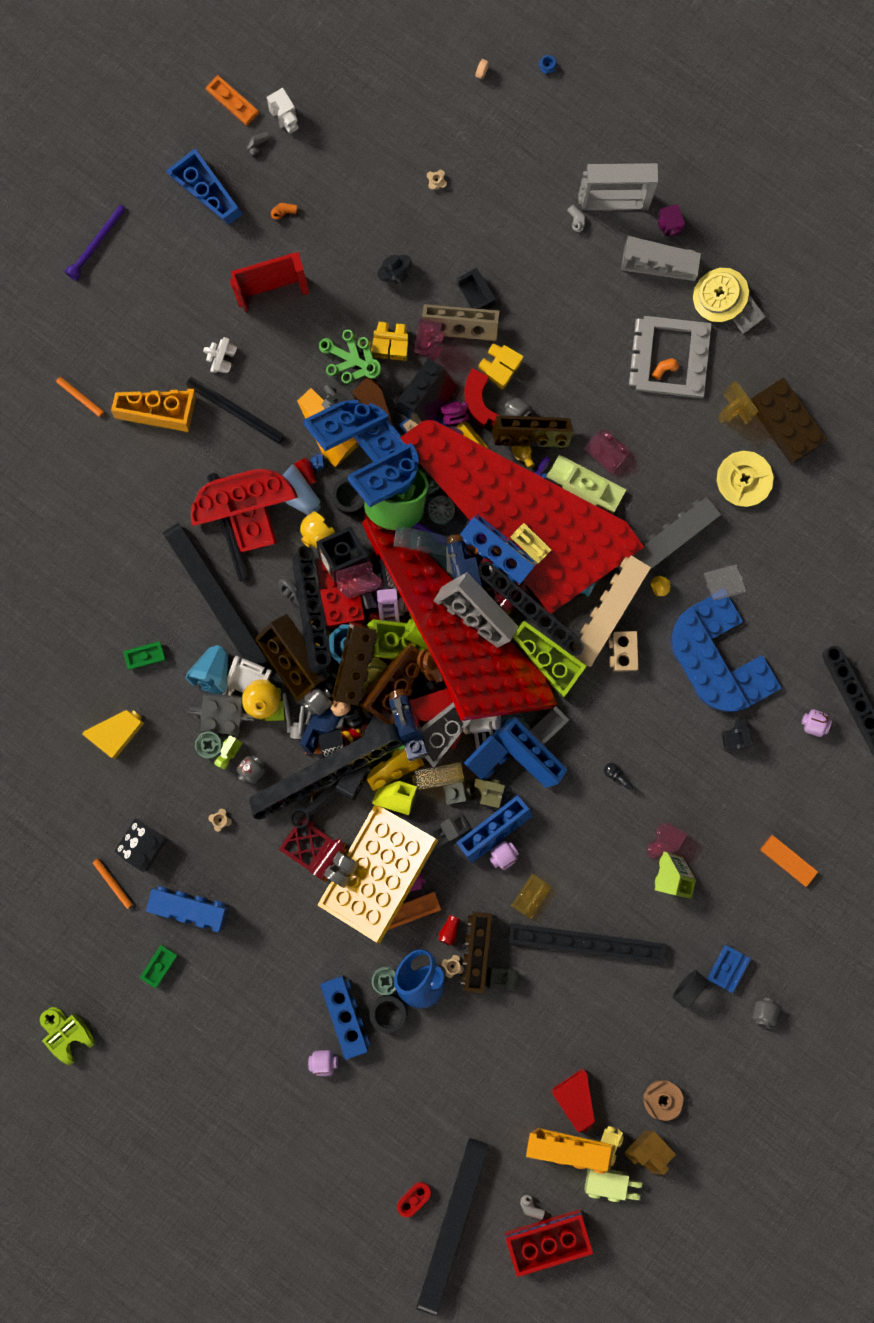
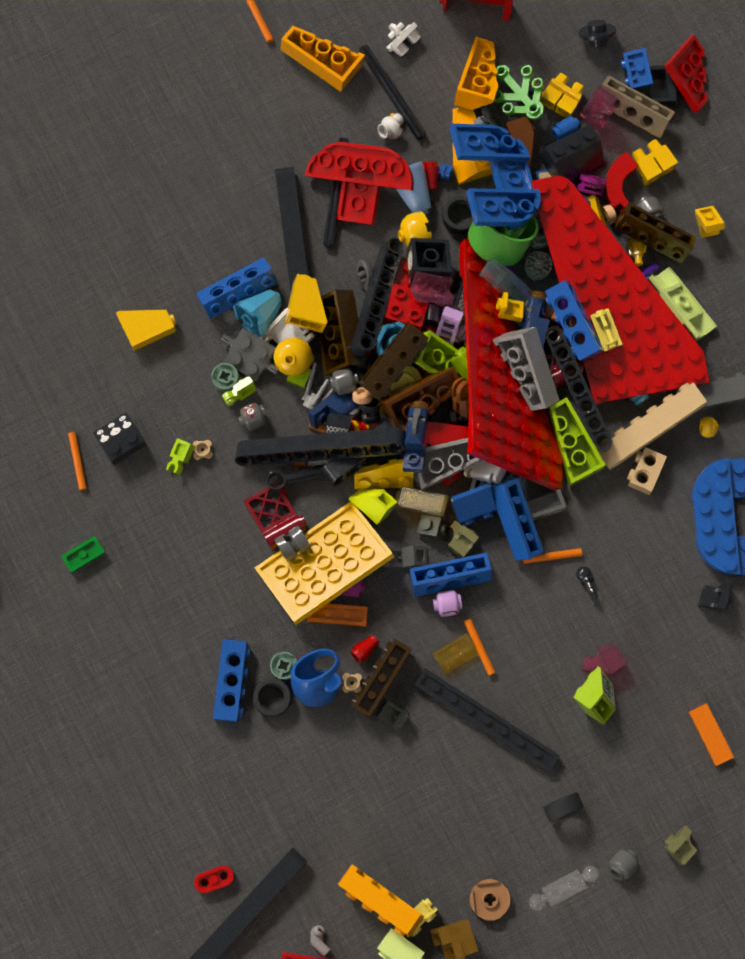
camera: 20 degrees right, 5 degrees down
(144, 655) = (204, 270): green plate -> none
(180, 659) = (236, 287): none -> blue brick
(188, 909) = (134, 514): blue wedge -> none
(203, 834) = (181, 453): none -> lime plate
(248, 443) = (390, 126): none -> white animal
(250, 647) = (305, 305): none -> yellow slope
(308, 362) = (479, 80): none -> light orange wedge
(322, 1063) = (190, 713): lavender head -> none
(407, 371) = (565, 127): none -> blue brick
(435, 563) = (509, 308): none -> yellow bracket
(447, 286) = (637, 68): none -> blue bracket
(483, 432) = (609, 214): none -> light nougat tile
(495, 268) = (688, 72): none -> red plate
(550, 880) = (479, 647): none -> orange bar
(575, 396) = (709, 221): none -> yellow slope
(575, 1100) = (407, 860): red slope -> none
(582, 763) = (554, 555): none -> orange bar
(607, 450) = (715, 282): clear pink bracket -> none
(723, 1058) = (563, 888): none -> clear plate
(728, 968) = (608, 806): blue plate -> none
(806, 973) = (680, 846): none -> olive brick

